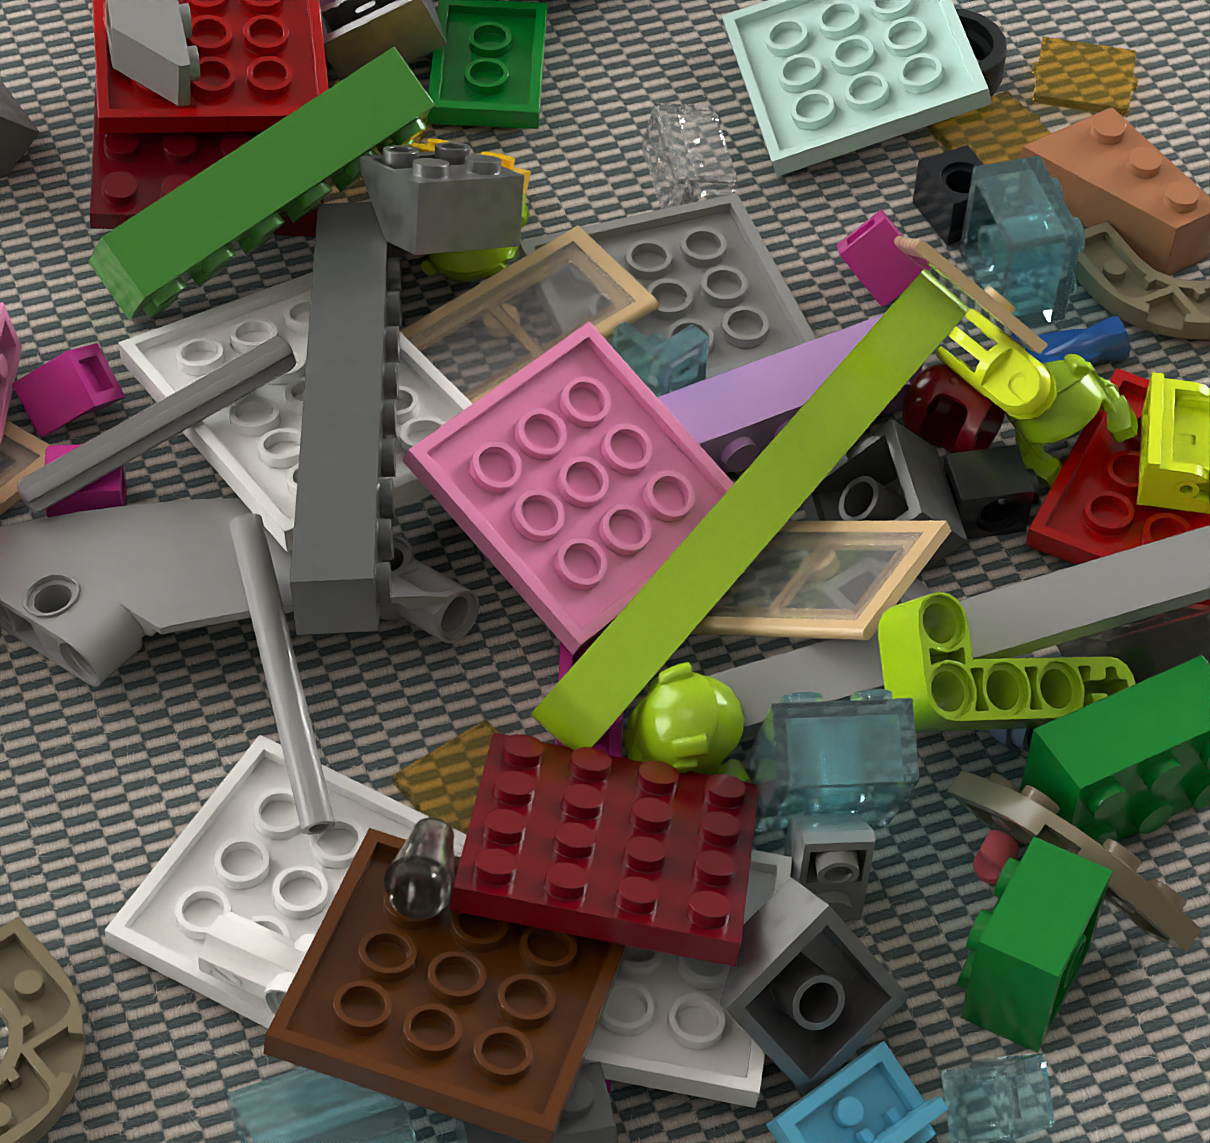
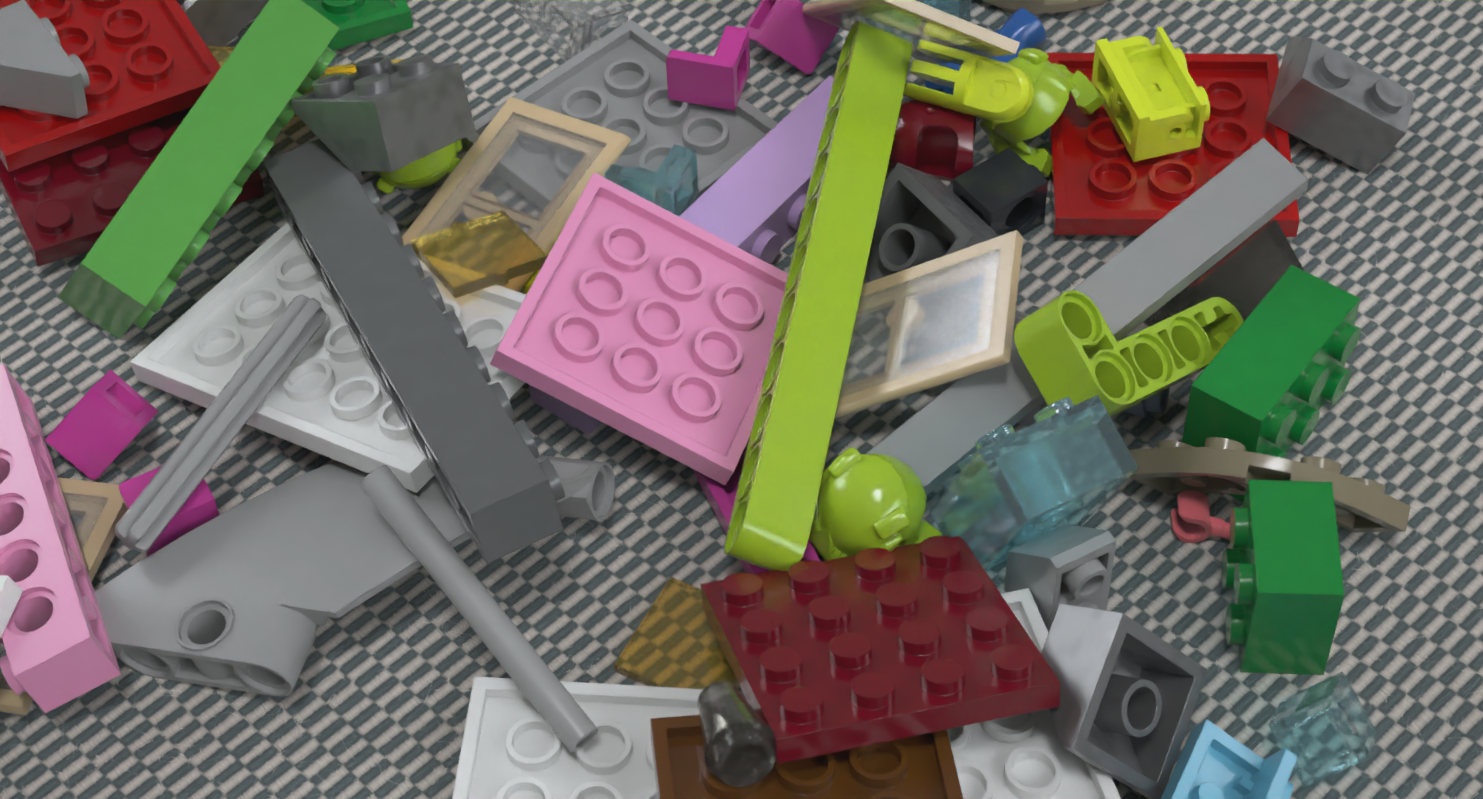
camera: 20 degrees left, 0 degrees up
(462, 358) = (479, 253): none -> clear yellow piece
(777, 275) = (711, 79): none -> dark pink panel

